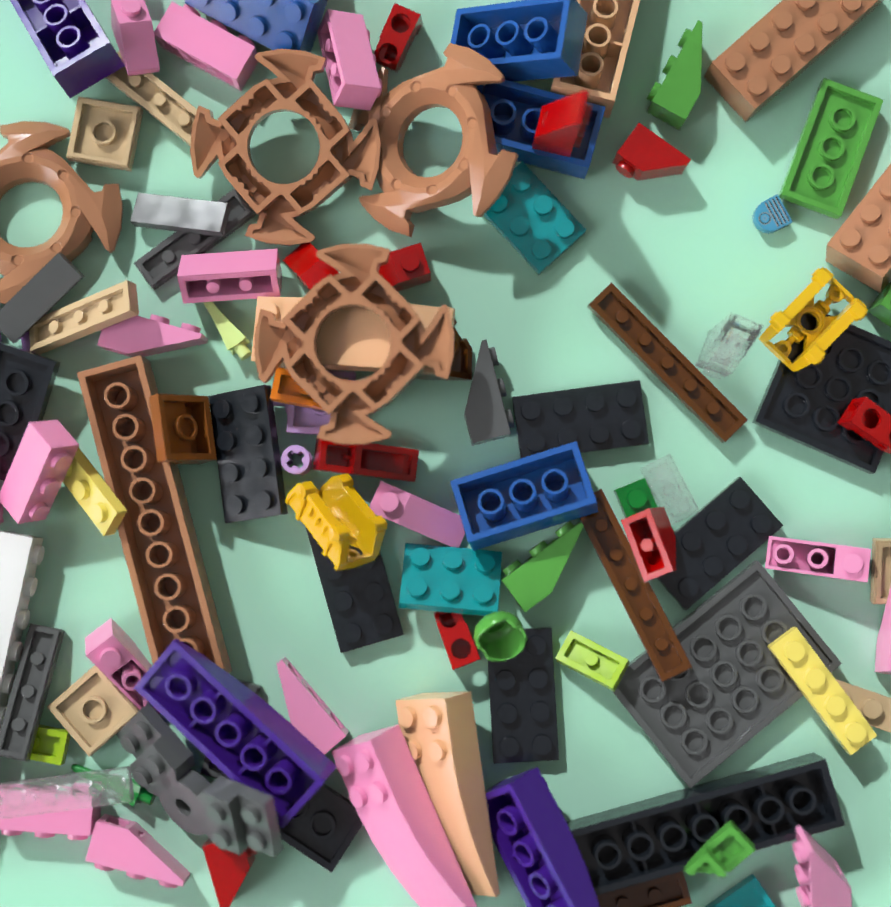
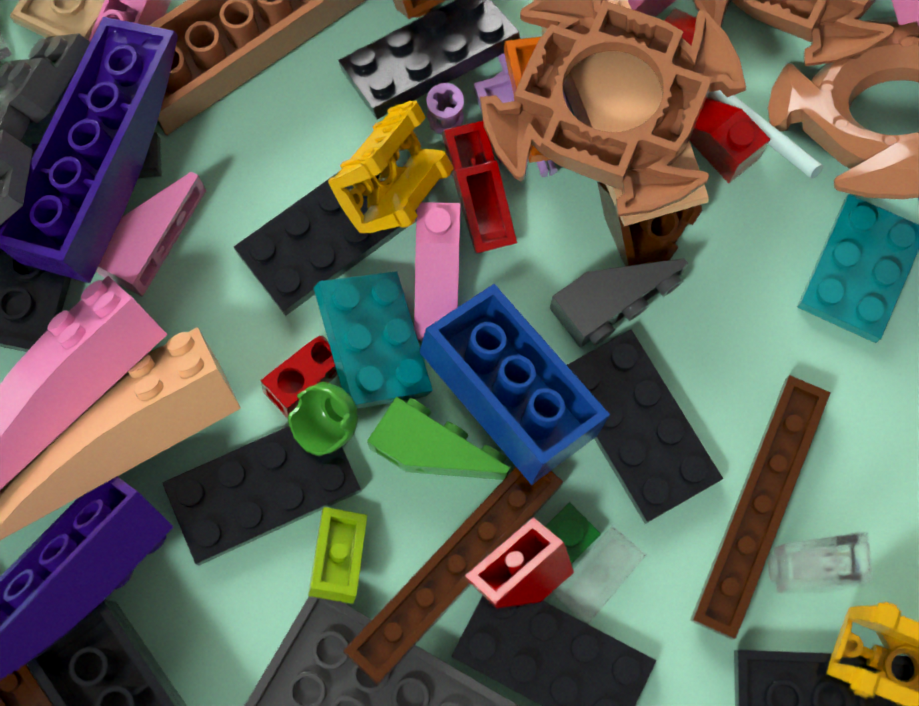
camera: 70 degrees right, 10 degrees down
(426, 234) = (778, 141): none -> light aqua bar

